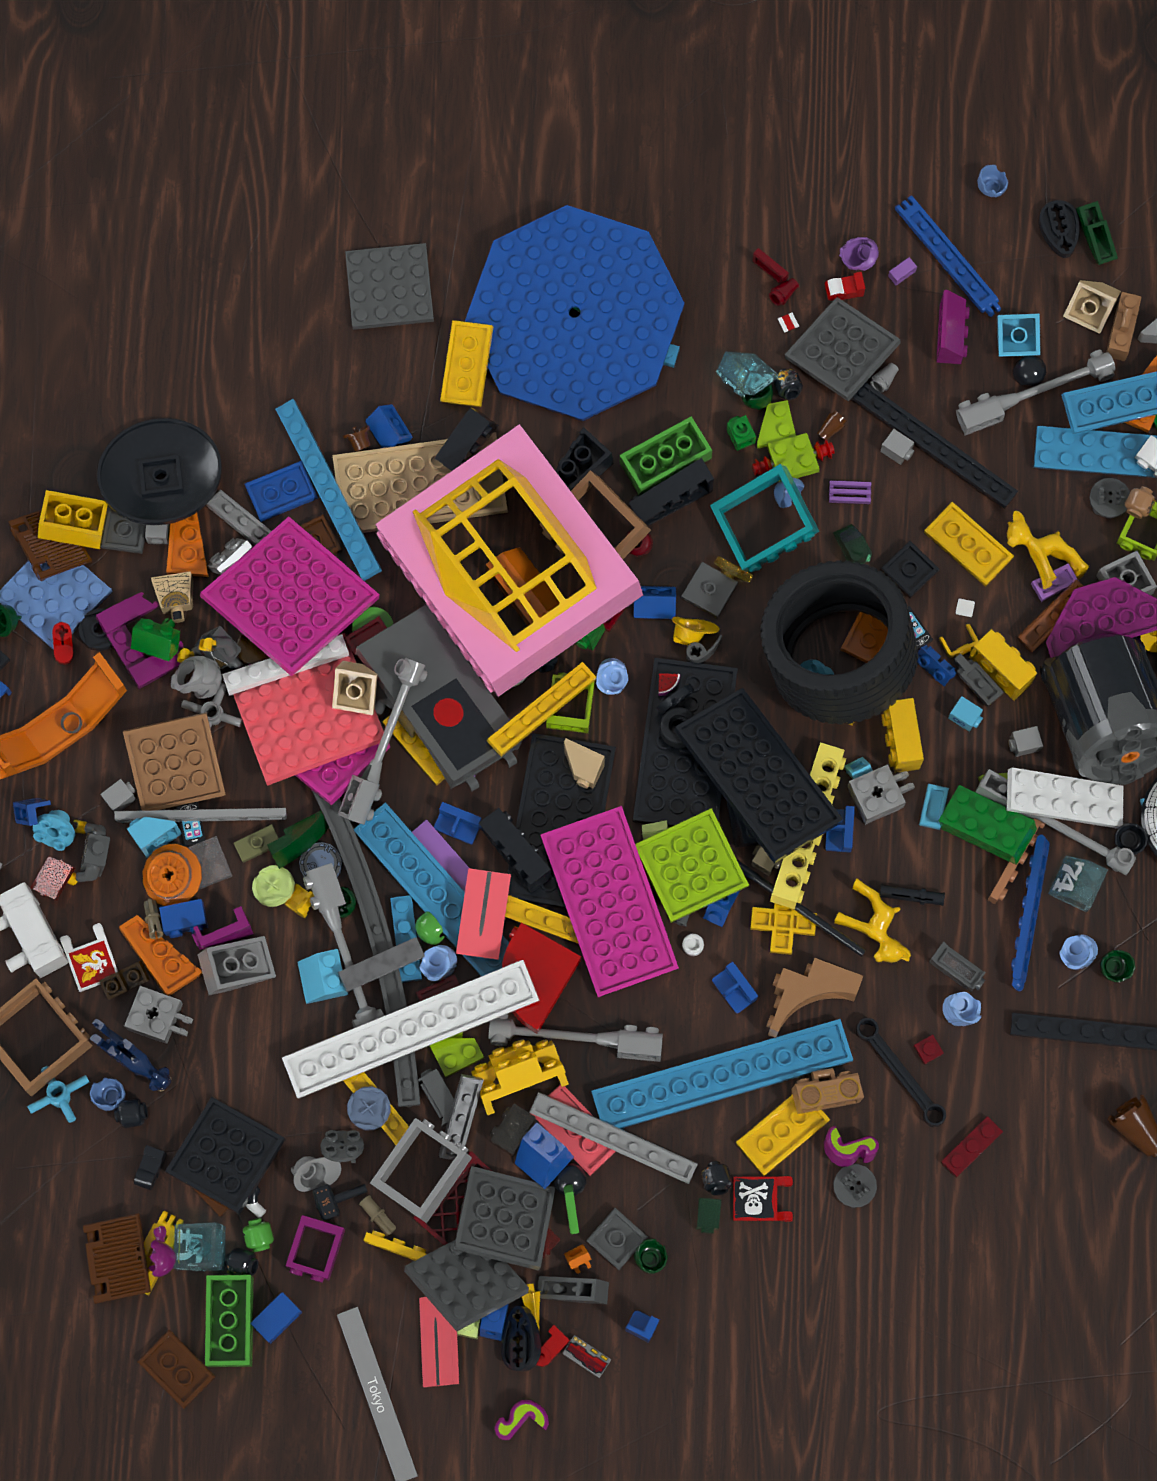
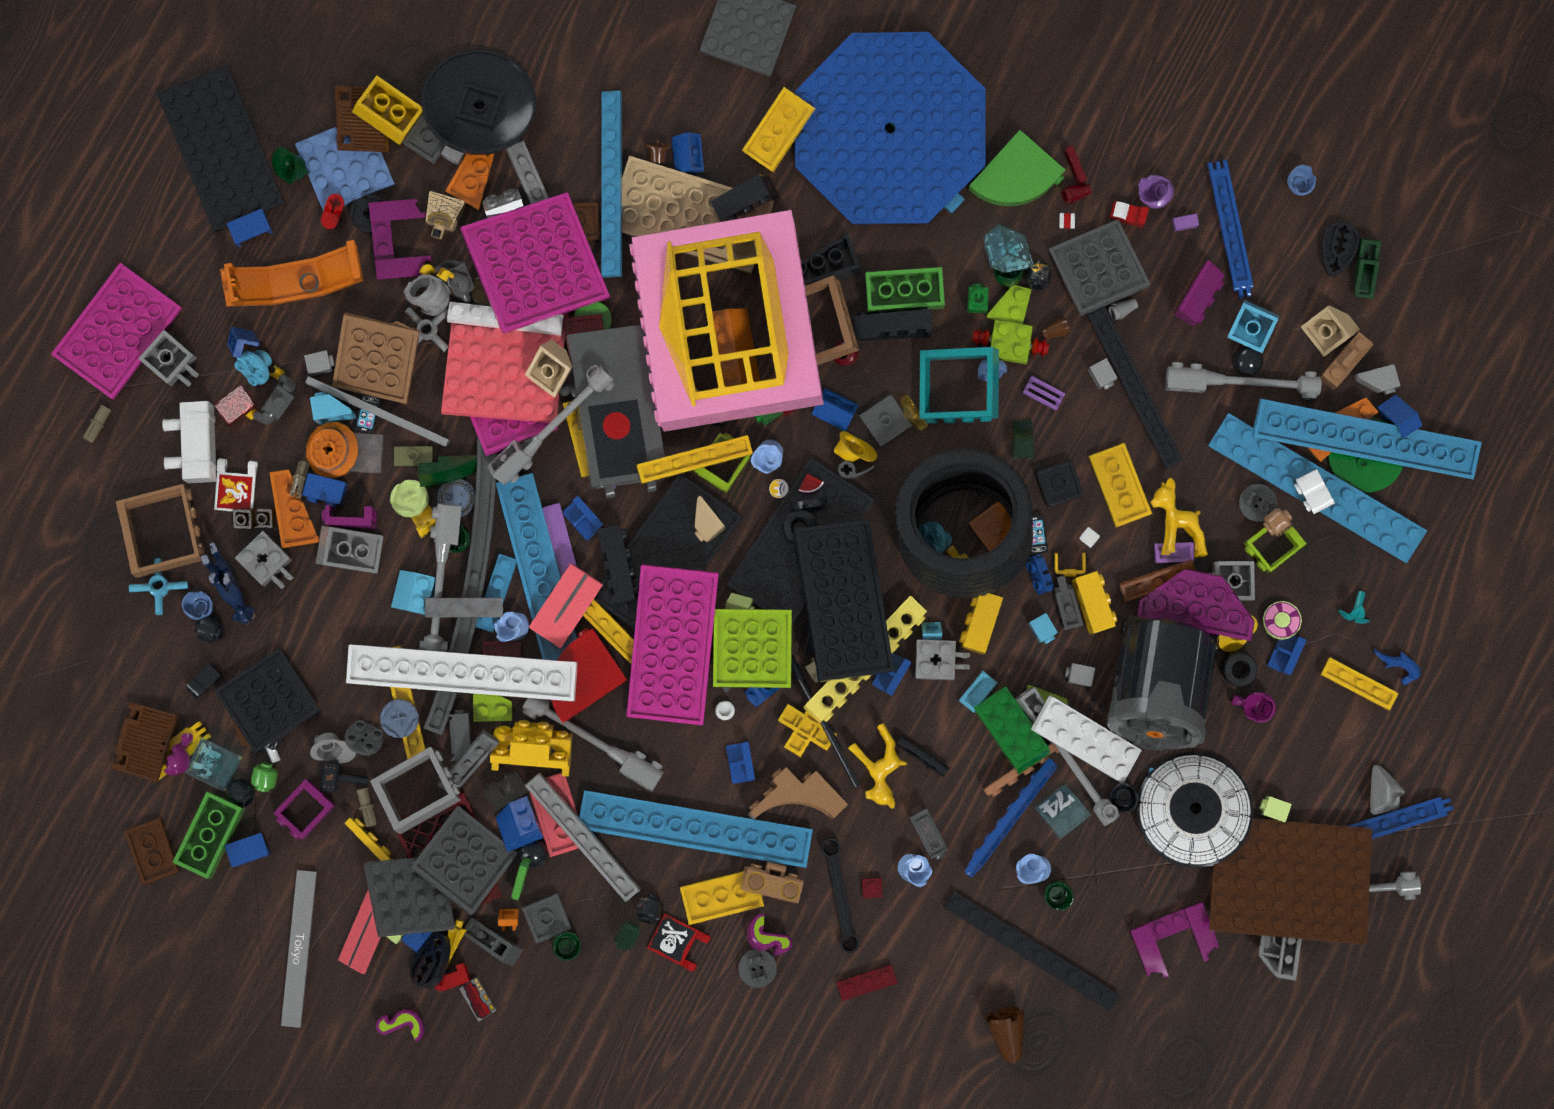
camera: 20 degrees right, 10 degrees up
(156, 639) = (408, 246): green brick -> none
(281, 491) = (573, 165): blue tile -> none
(429, 929) = (516, 595): bright green hair -> none
(637, 703) = (778, 488): none -> tile
(642, 1326) = (531, 998): blue panel -> none
(719, 300) = (1017, 174): none -> bright green brick

